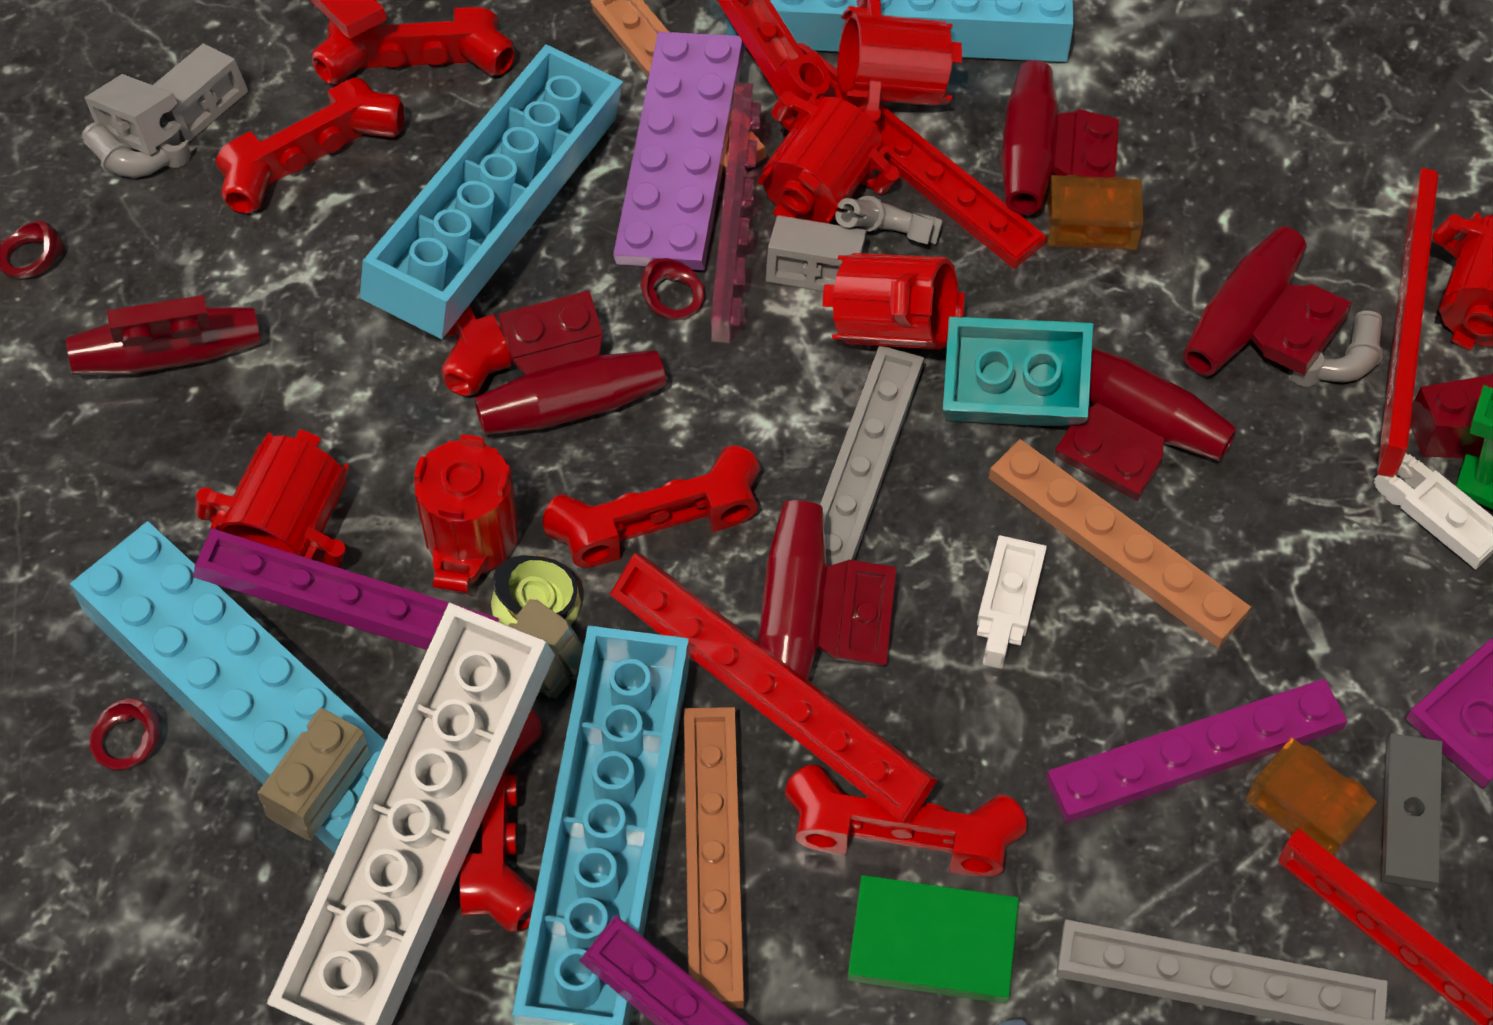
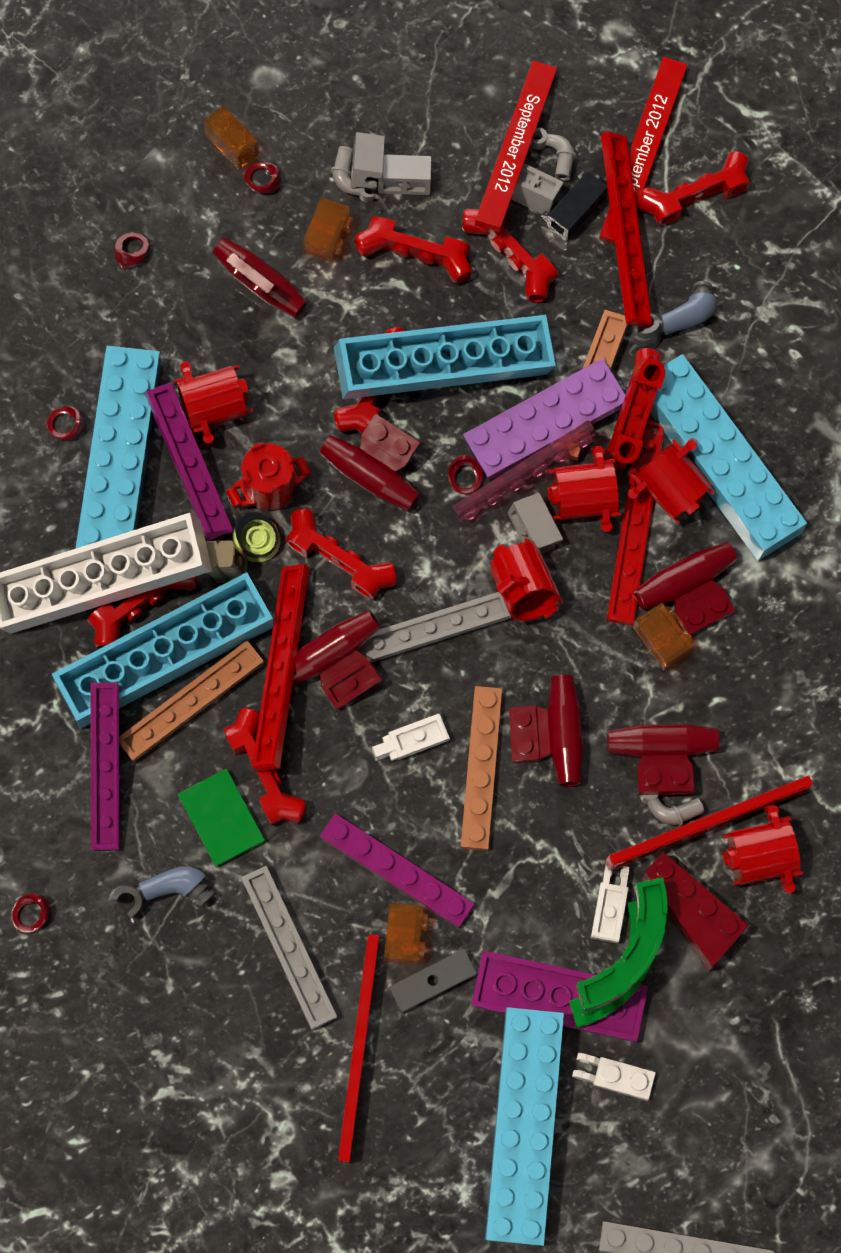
camera: 50 degrees right, 15 degrees up
(180, 221) = (327, 230): none -> clear orange brick
(314, 774) = (89, 517): dark tan brick -> none
(872, 214) = (579, 534): light grey piece -> none
(1017, 371) = (526, 661): teal brick -> none

